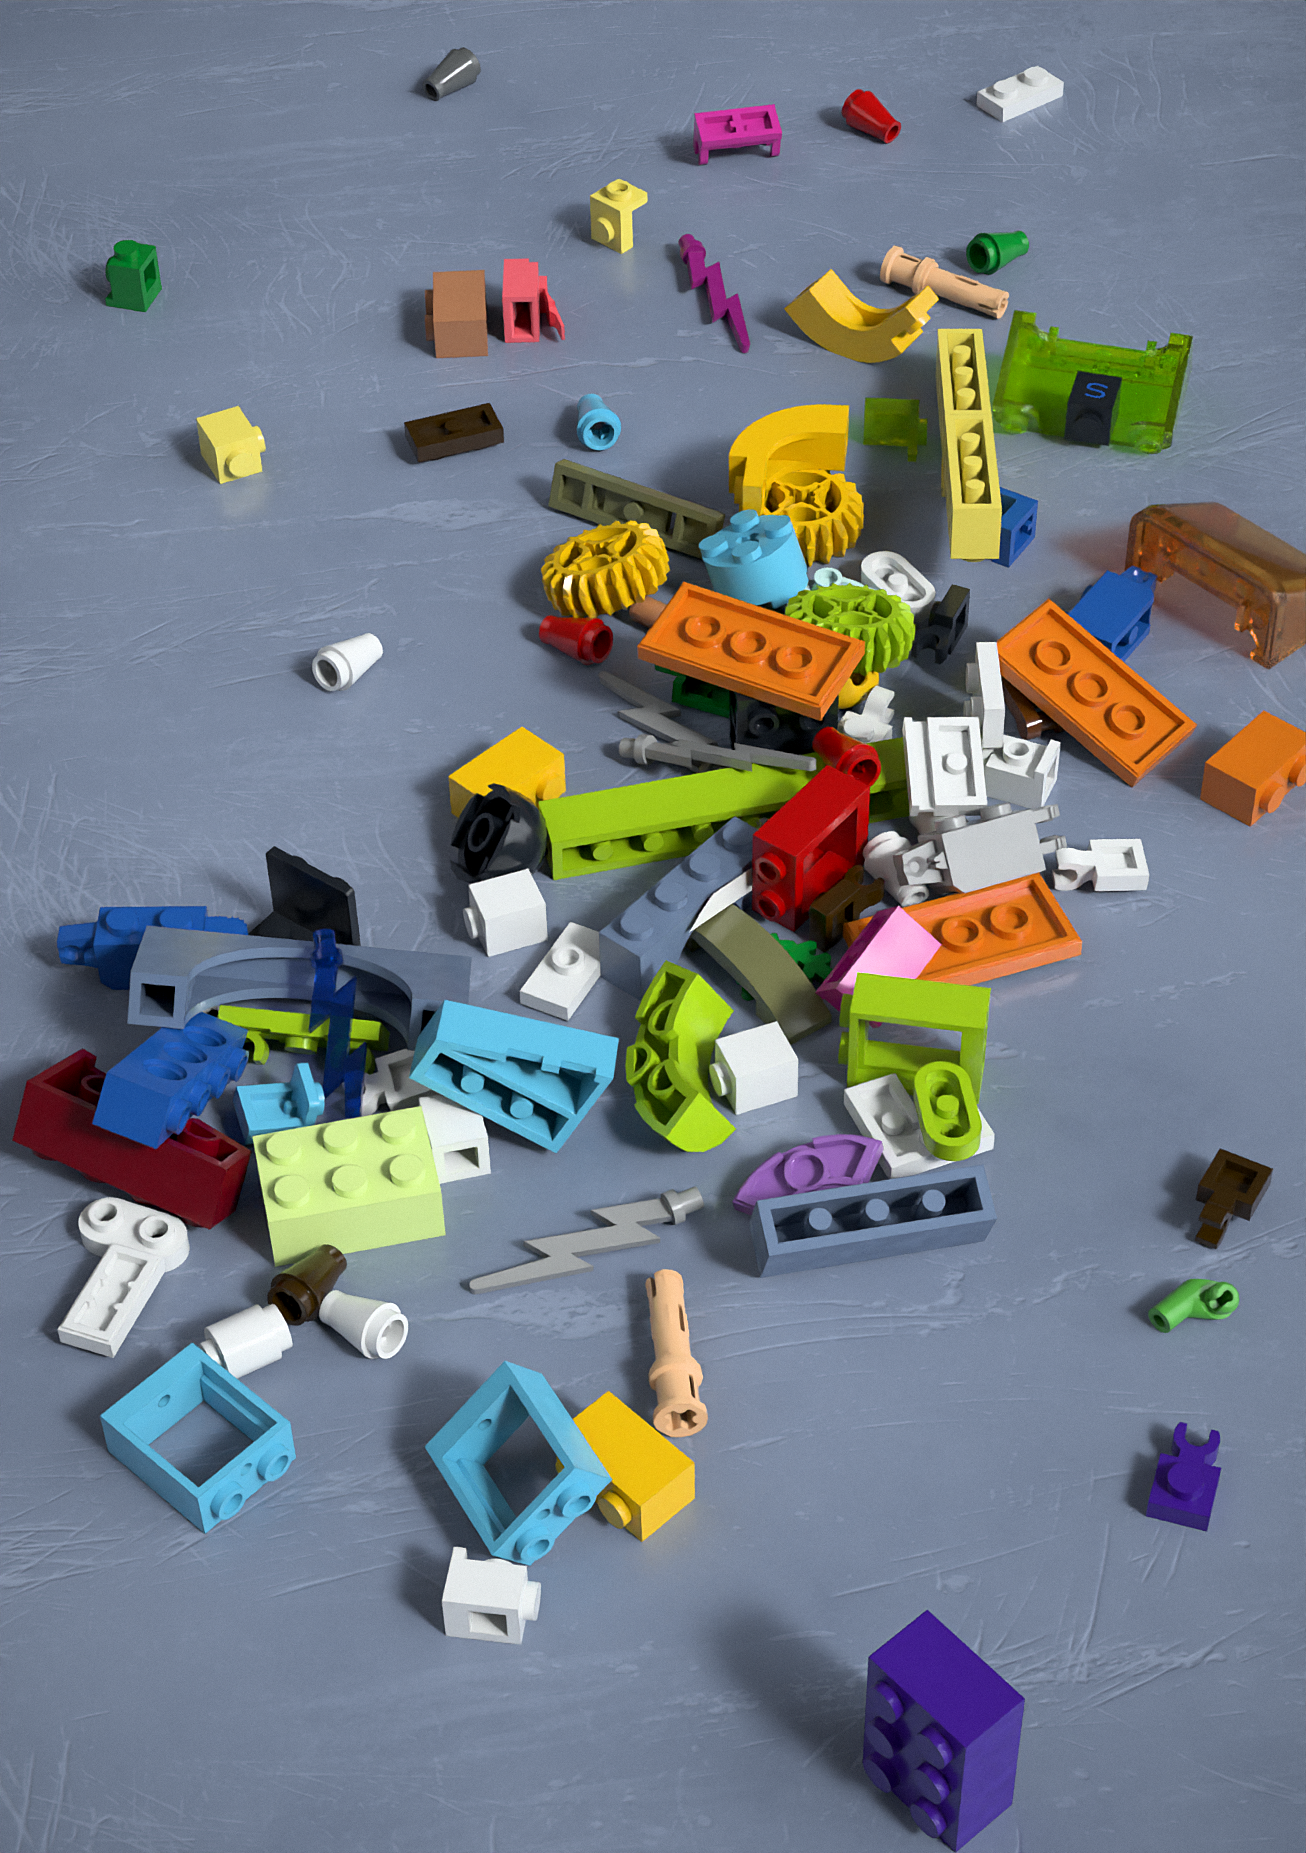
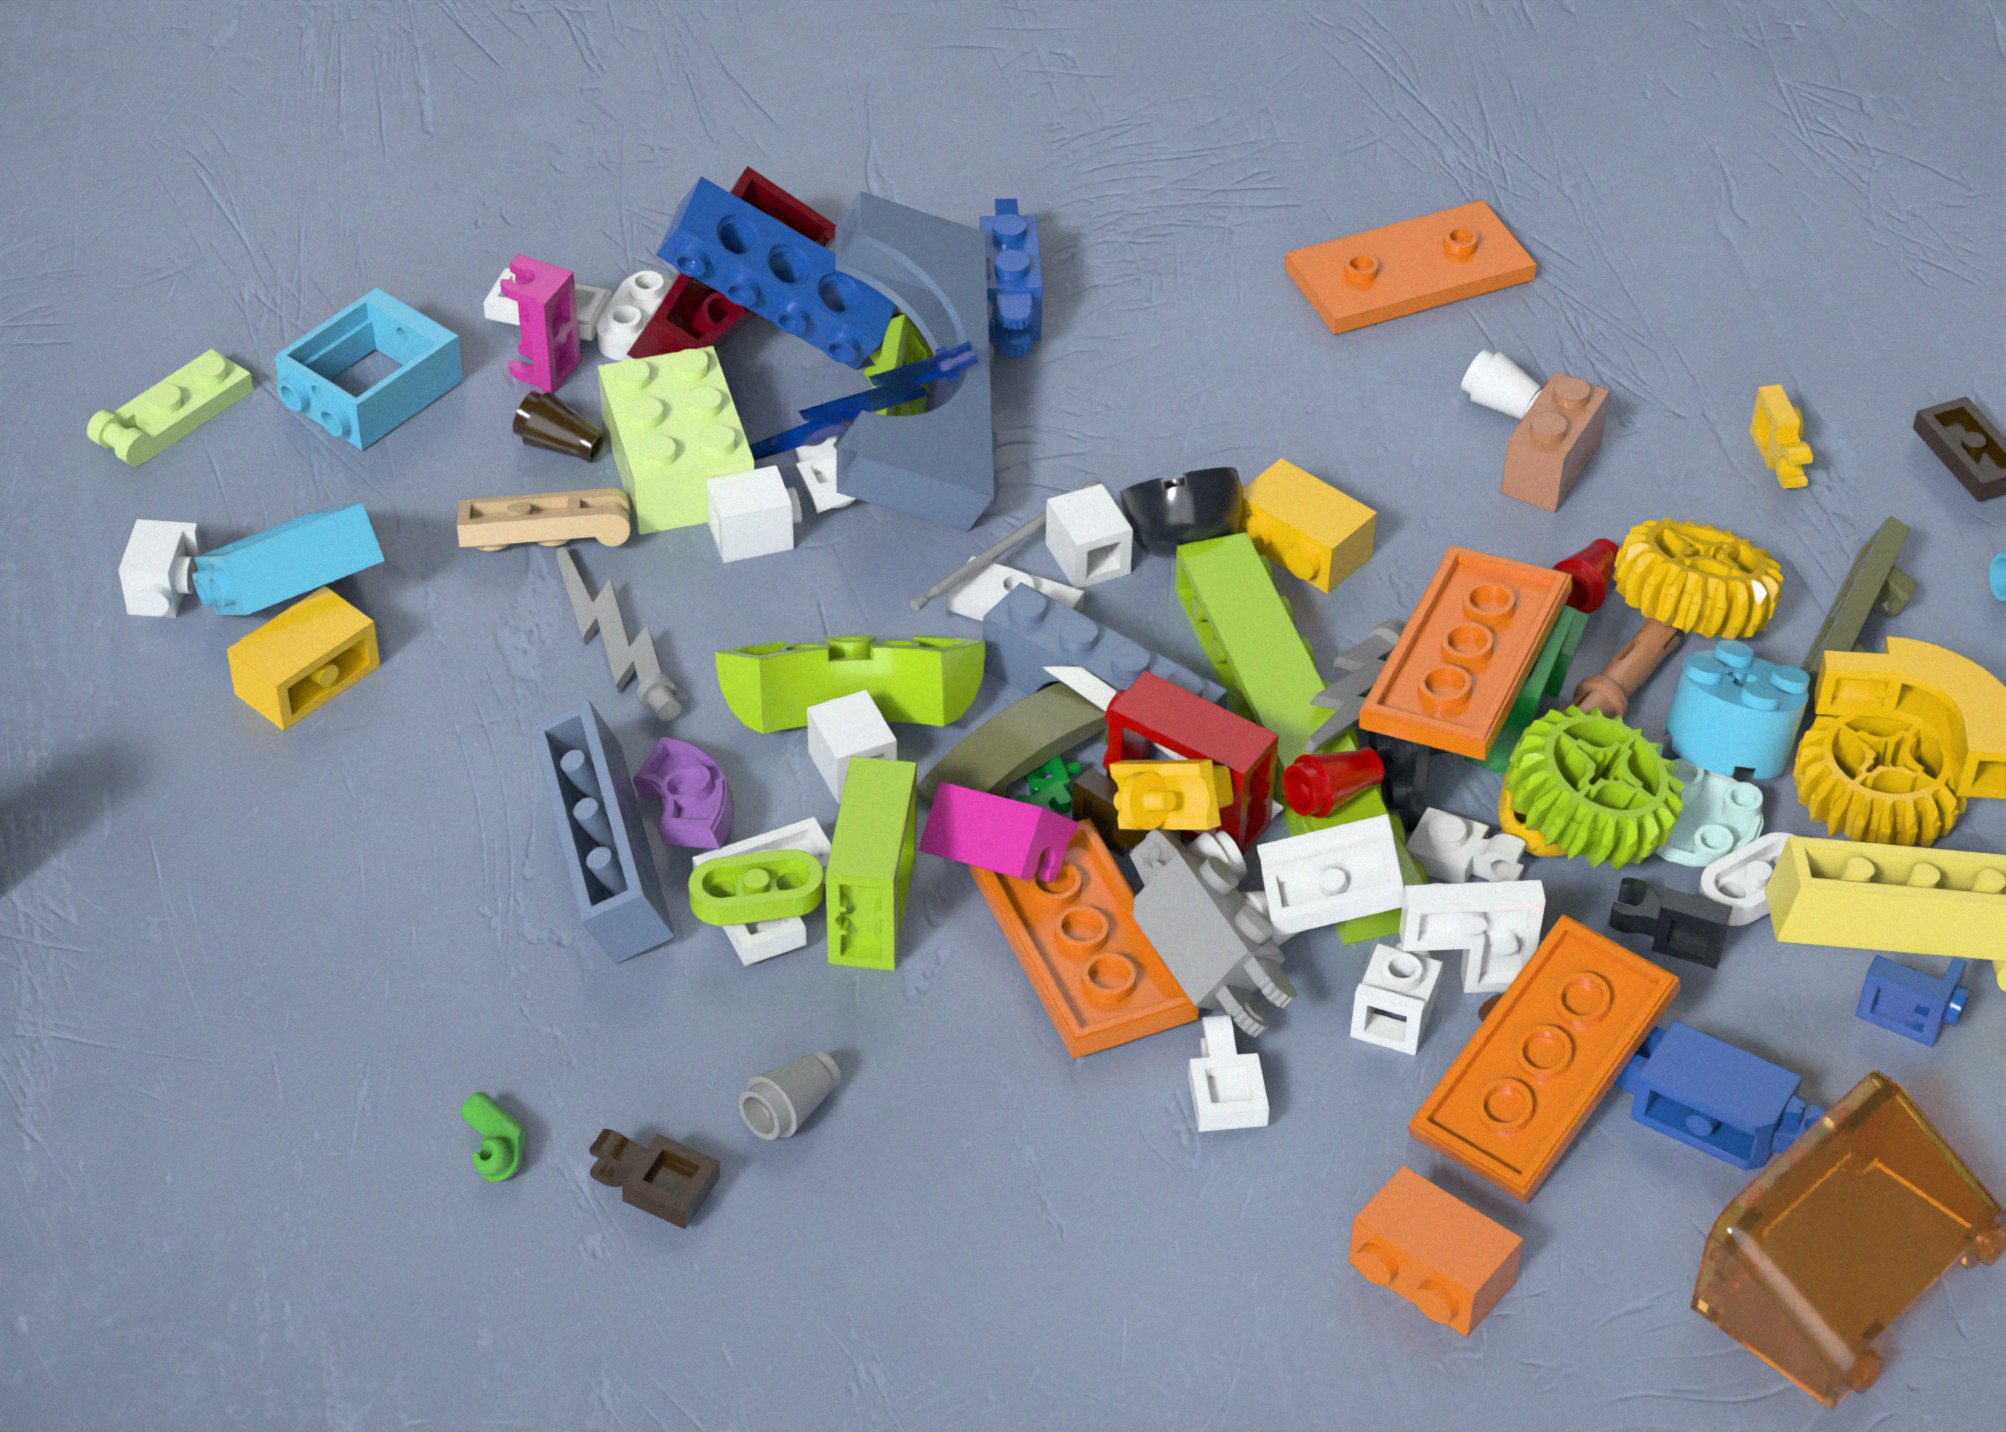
camera: 85 degrees right, 0 degrees up
(170, 709) = (1409, 267): none -> orange plate
(182, 1275) = (546, 322): none -> dark pink hinge
(214, 1623) = (171, 408): none -> yellowish green plate
(230, 444) = (1882, 259): light yellow brick -> none
(247, 1340) = (481, 388): white brick -> none
(279, 1105) = (786, 384): medium azure bracket -> none
(307, 902) = (1047, 377): black bracket -> none
(368, 1324) = (504, 468): white cone -> none
(427, 521) = (1778, 436): none -> yellow plate
(428, 633) = (1555, 441): none -> nougat brick
(442, 1291) = (544, 519): none -> tan plate
(512, 967) = (984, 559): none -> light grey piece
(515, 1069) = (794, 512): medium azure wedge -> none
(675, 1372) = (449, 693): light nougat pin -> none
(877, 839) = (1170, 794): none -> yellow hips
(1140, 1113) = (787, 1095): none -> light grey cone
(1186, 1482) = (244, 1117): dark purple plate -> none

